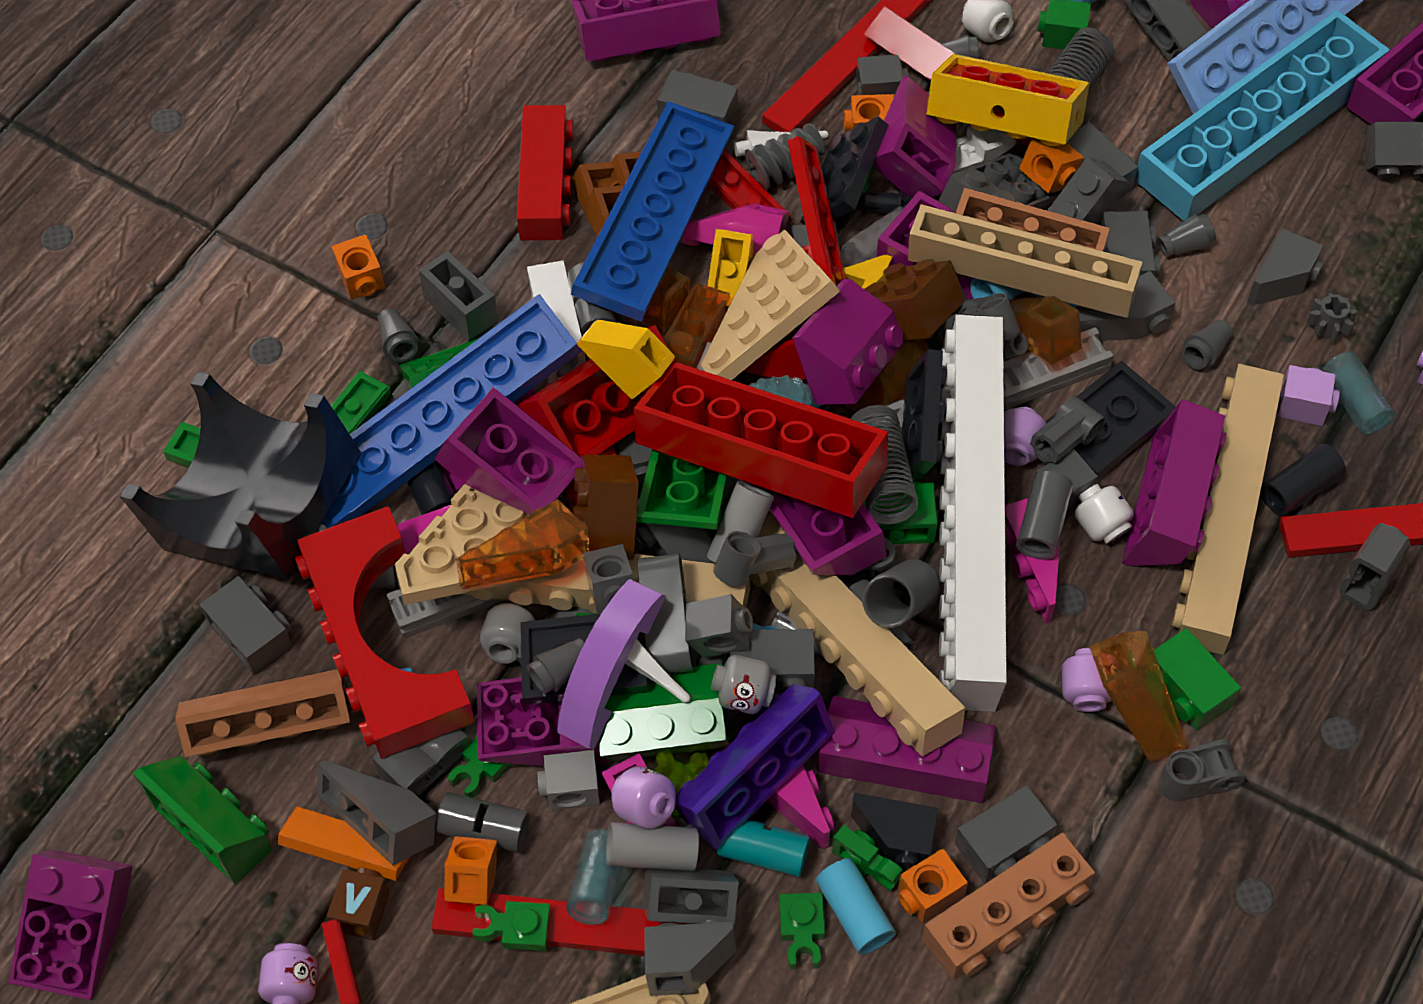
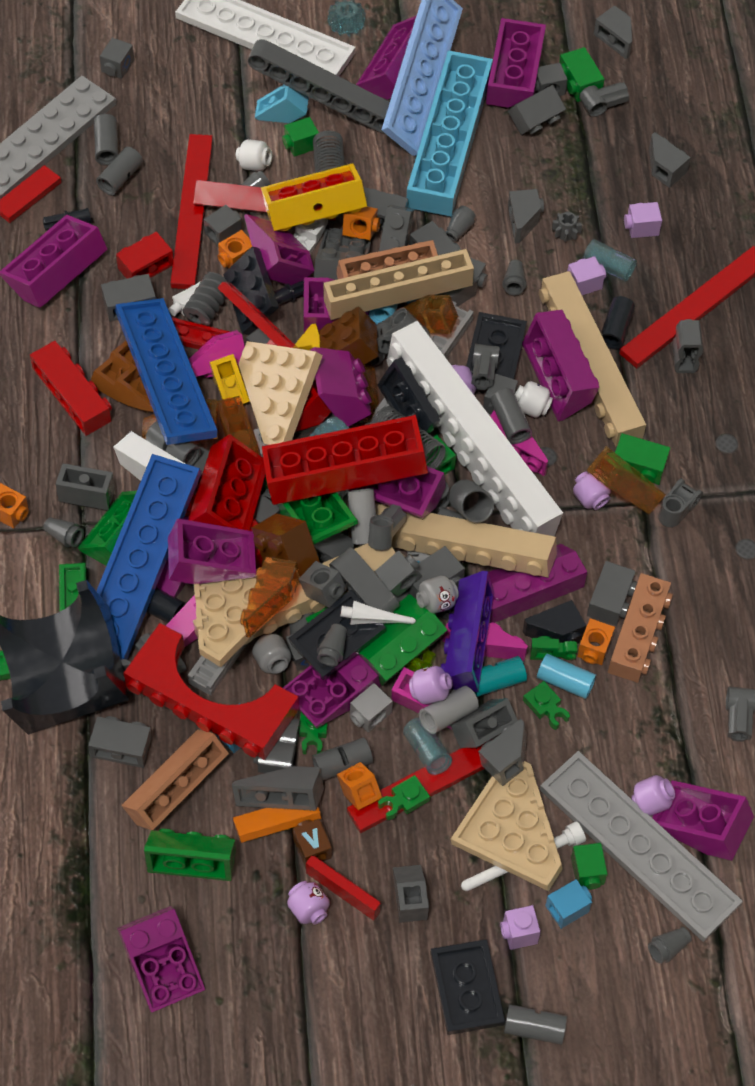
camera: 40 degrees left, 0 degrees up
(602, 660) = (359, 627): medium lavender slope -> none
(626, 354) = (236, 457): yellow slope -> none
(755, 68) = (146, 256): none -> red brick
(864, 245) = (294, 324): clear slope -> none

